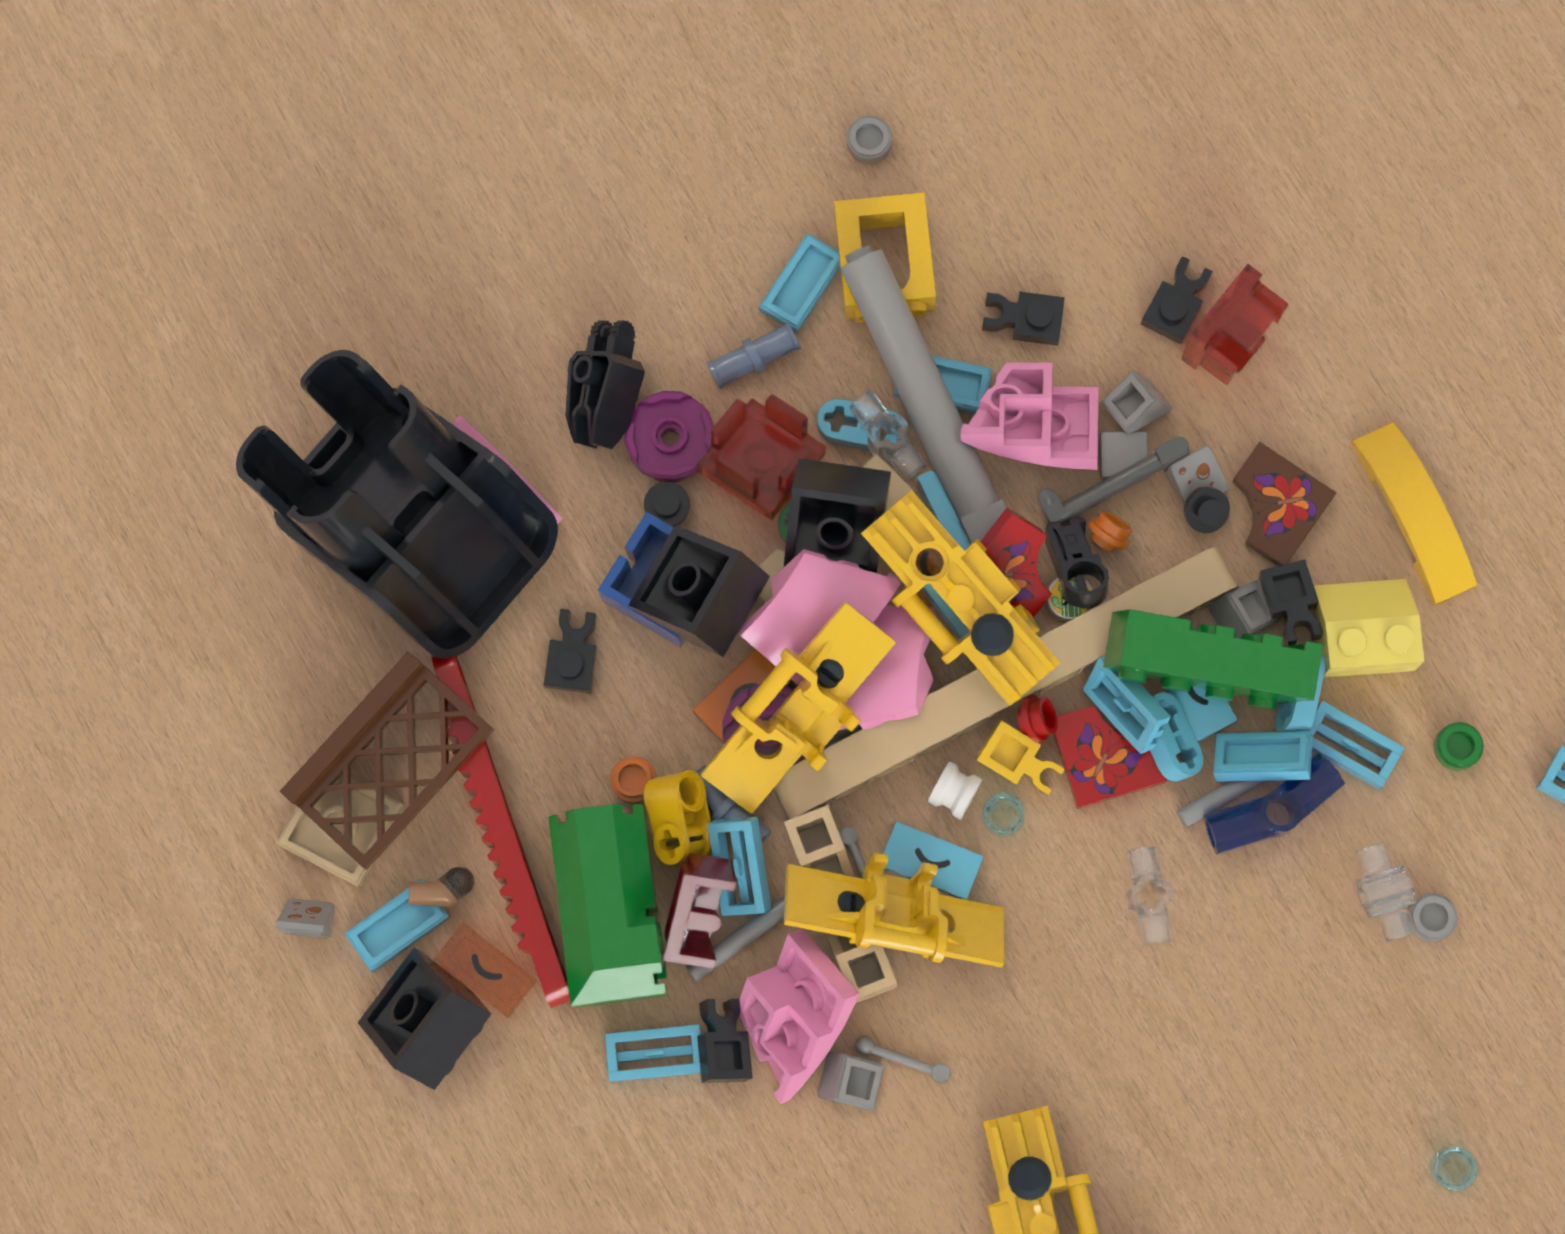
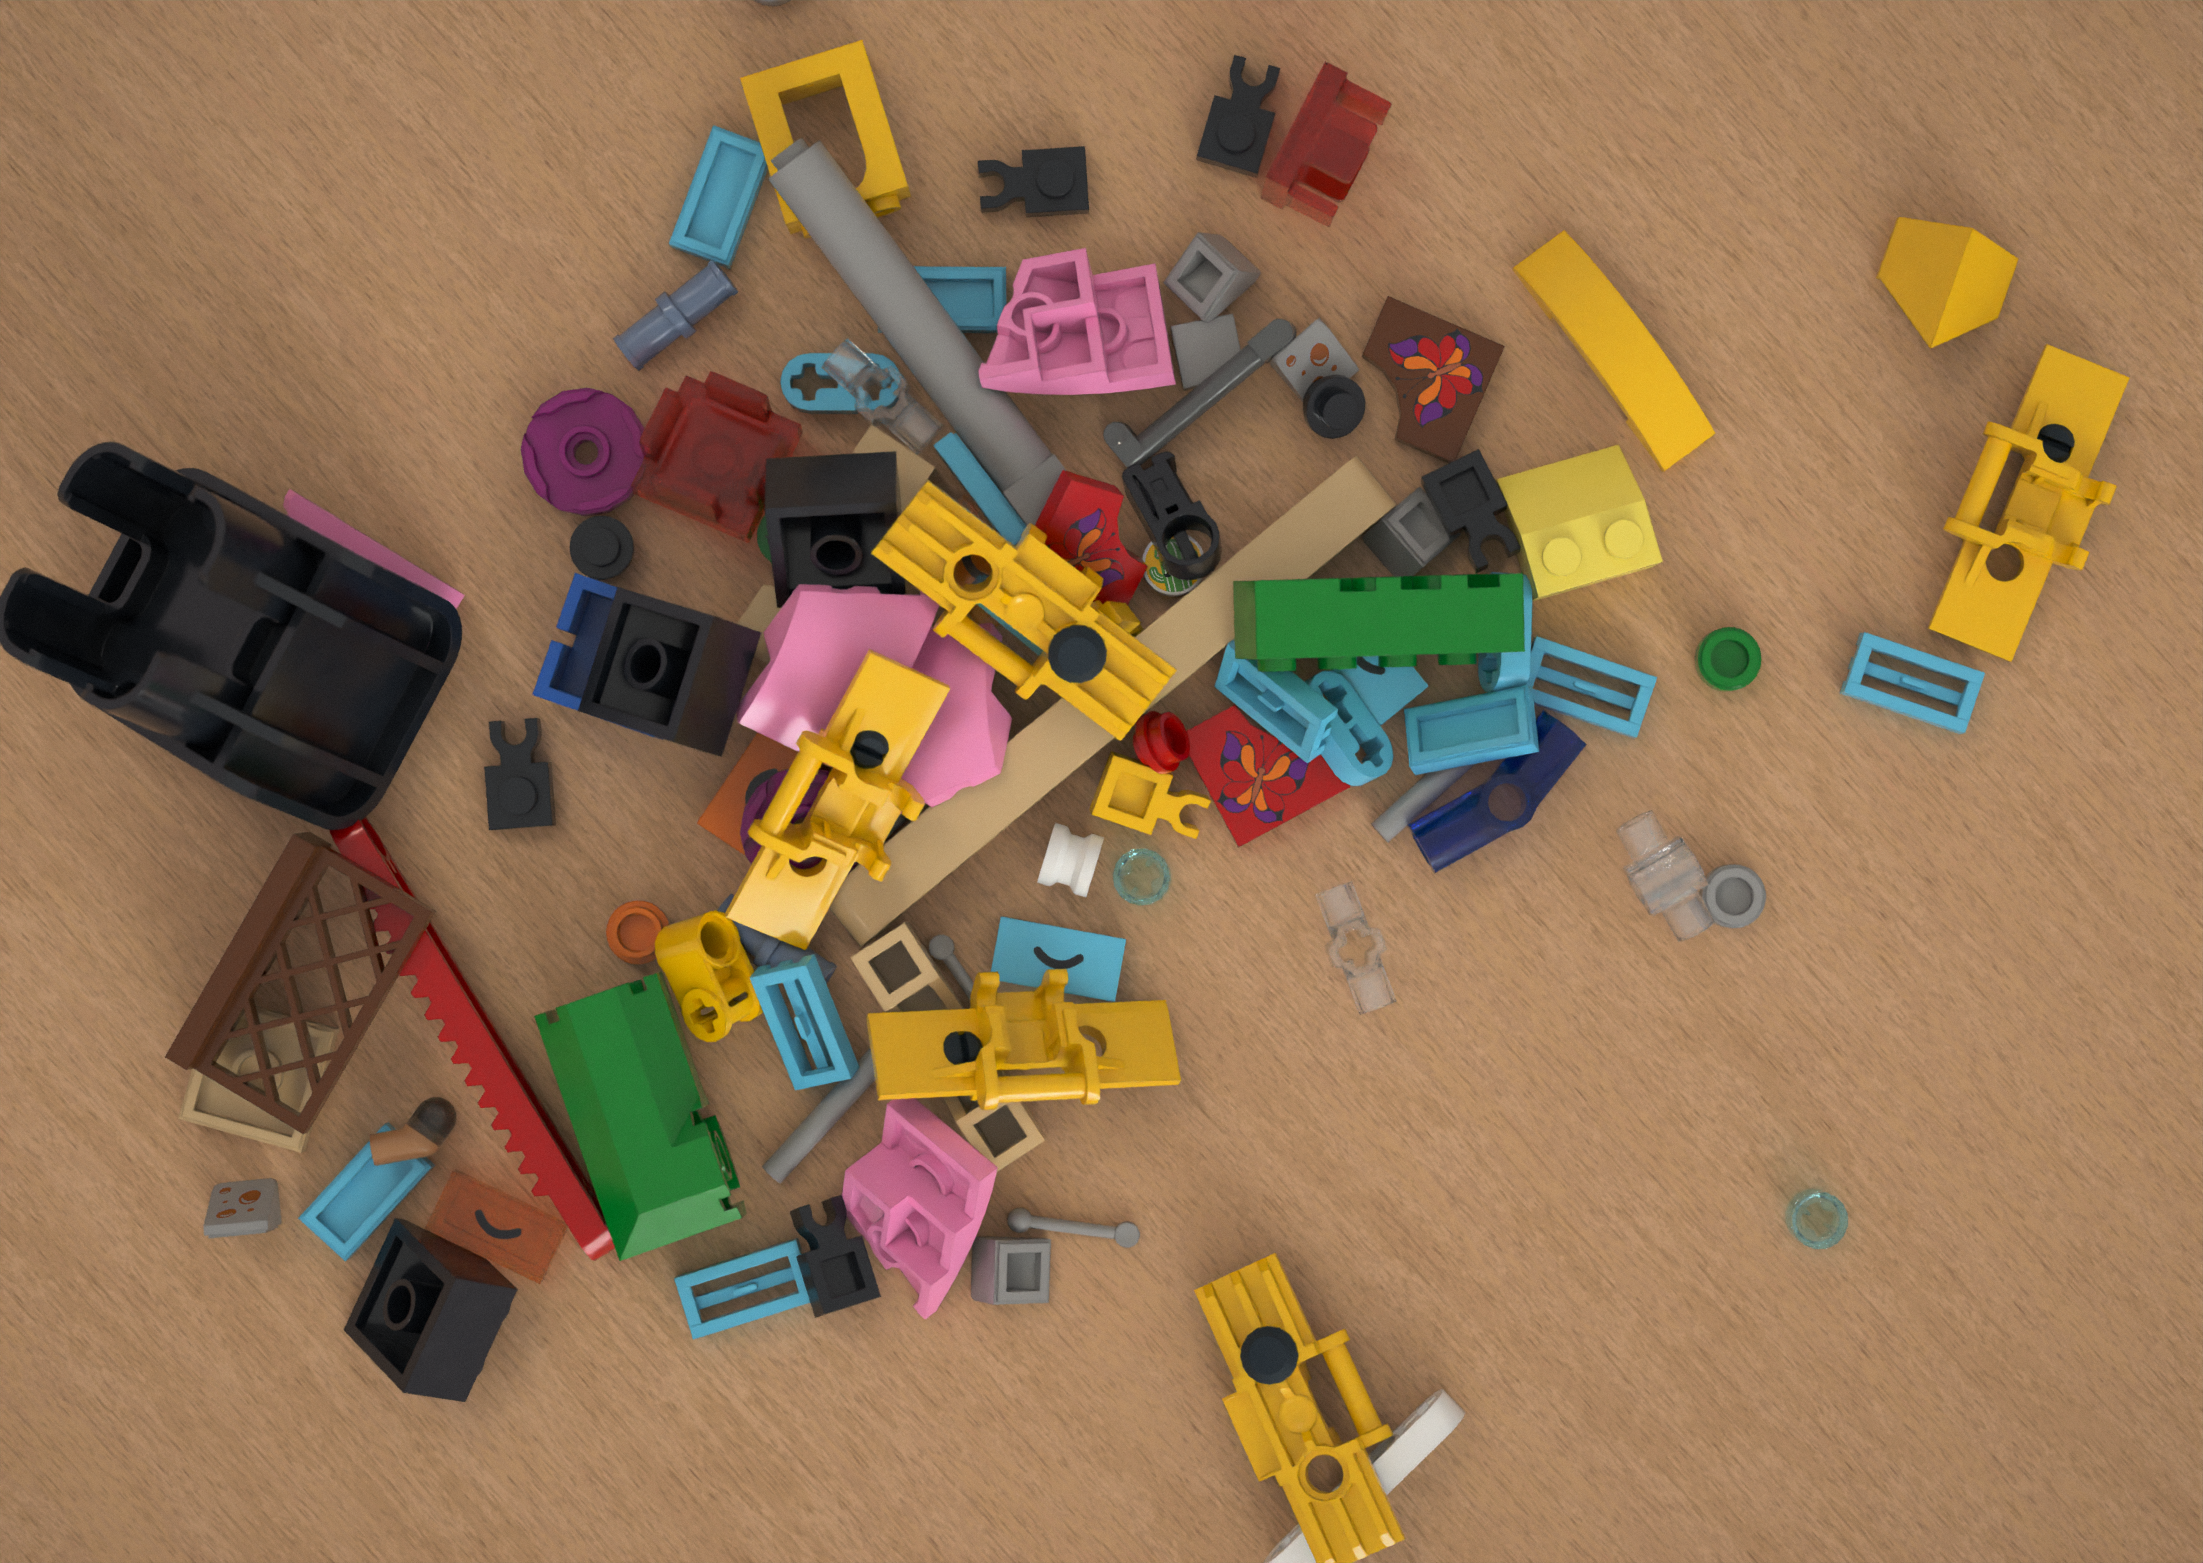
camera: 20 degrees left, 10 degrees up
(603, 385) = (478, 402): black hinge -> none
(694, 910) = (757, 1096): window -> none
(1110, 531) = (1209, 463): orange plate -> none

